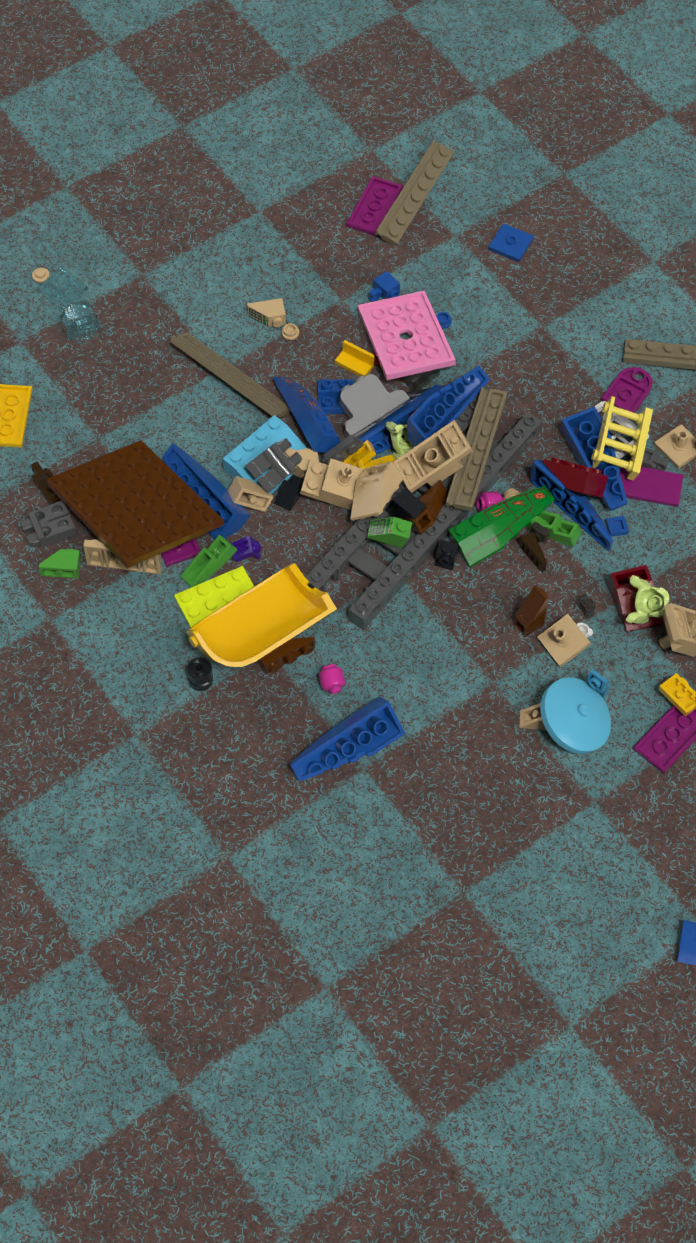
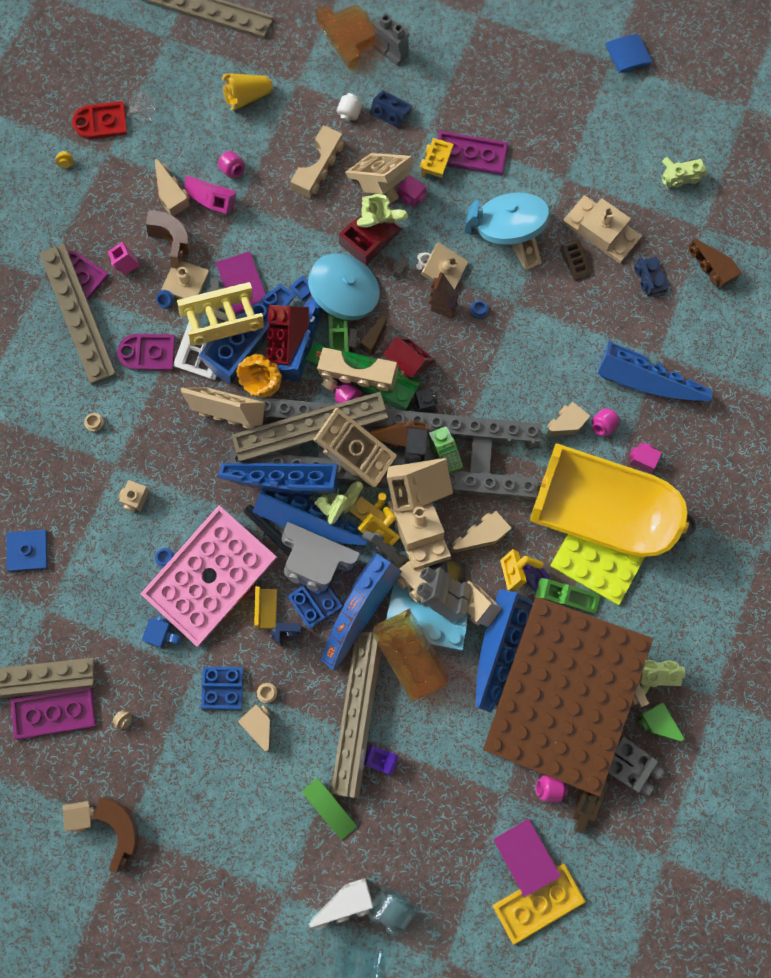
camera: 125 degrees left, 15 degrees up
(45, 423) = (526, 858): none -> magenta tile
(76, 459) = (551, 789): none -> dark pink head
(99, 585) = (661, 673): none -> yellowish green brick
(105, 298) = (349, 900): none -> white slope
(179, 323) = (329, 808): none -> bright green slope
(186, 372) = (381, 760): none -> dark purple bracket
(244, 419) = (410, 655): none -> clear orange brick
(259, 533) = (513, 569): none -> yellow plate
(263, 207) = (125, 827): none -> reddish brown arch
(279, 689) = (645, 457): none -> dark pink brick
(290, 183) = (77, 816): none -> tan brick
(302, 533) = (487, 533): none -> tan slope
(315, 307) = (222, 688): none -> blue slope
(325, 358) = (290, 630): none -> dark blue bracket
(338, 239) = (122, 720): none -> tan plate
(352, 651) = (569, 422): none -> tan slope
(416, 869) = (718, 266): none -> reddish brown slope
(444, 807) = (651, 276): none -> dark blue bracket
(495, 563) = (409, 357): none -> dark red slope
(506, 322) = (133, 496): none -> tan brick
(506, 647) = (479, 309): none -> blue plate
(508, 762) = (575, 244): none -> dark brown slope
(518, 491) = (380, 374): none -> tan arch
(519, 796) = (603, 227): none -> tan brick
(533, 896) = (683, 173): none -> yellowish green brick
(537, 400) = (225, 406): none -> tan slope
(548, 443) = (259, 376): none -> light orange hair
(589, 327) = (94, 422): none -> tan plate
(593, 547) = (343, 286): none -> medium azure dish
(659, 657) = (412, 191): none -> dark pink brick
(670, 422) = (165, 298): none -> blue plate

